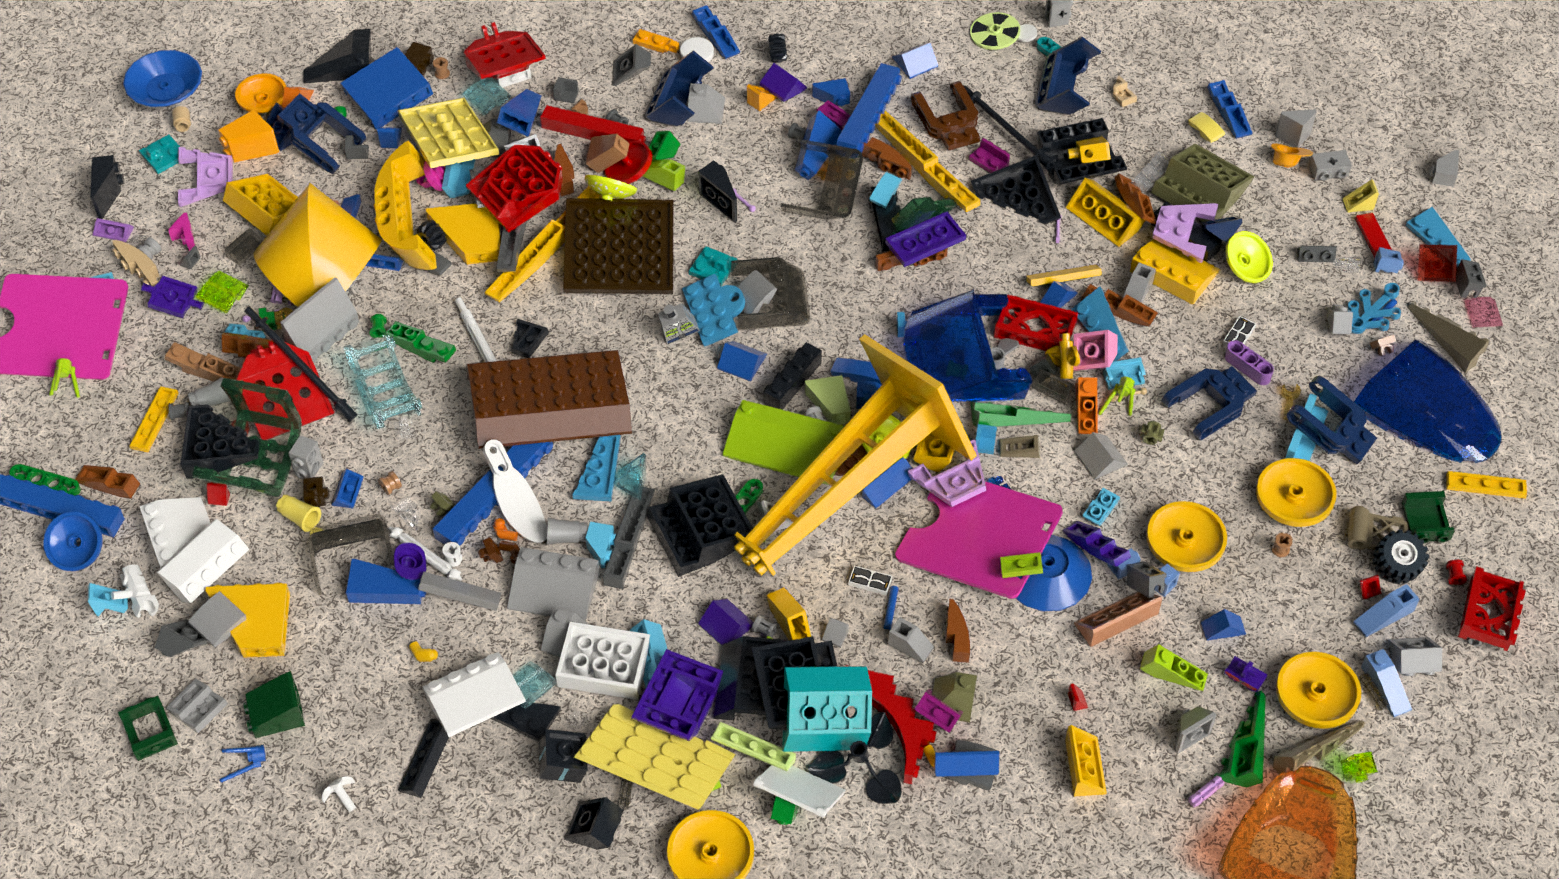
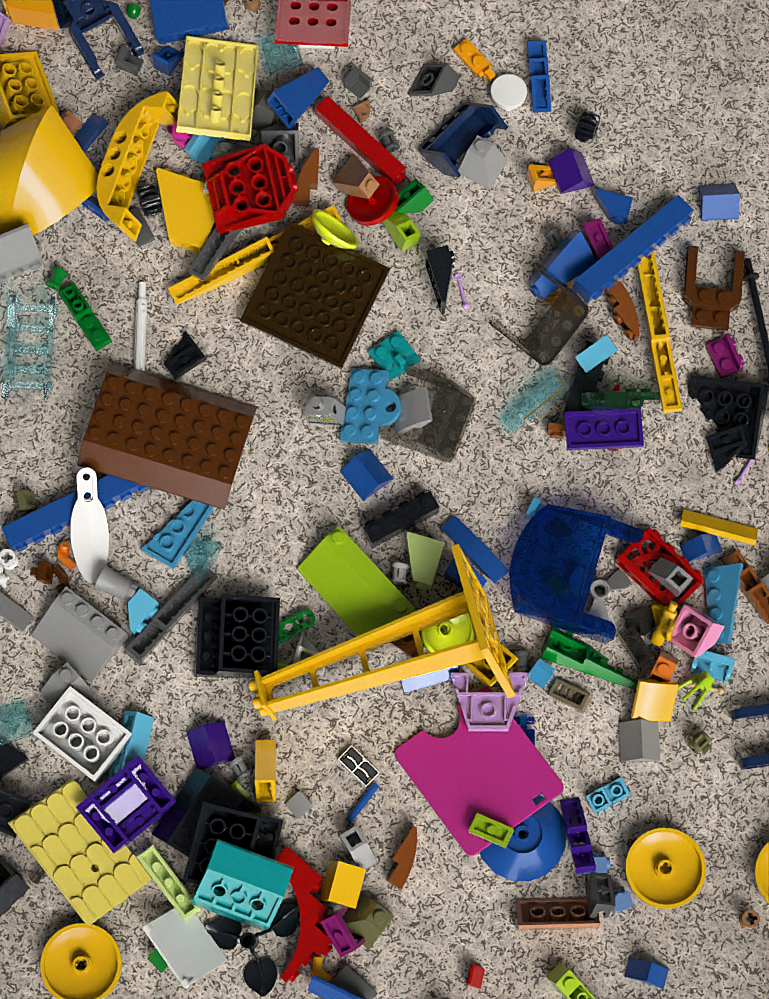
camera: 25 degrees right, 20 degrees up
(854, 251) = (534, 404): none -> clear light blue slope
(913, 674) = (342, 884): none -> yellow slope
(1032, 215) = (726, 445): none -> black wing
(1049, 318) = (670, 576): none -> light grey slope
(1094, 414) = (654, 700): none -> yellow slope

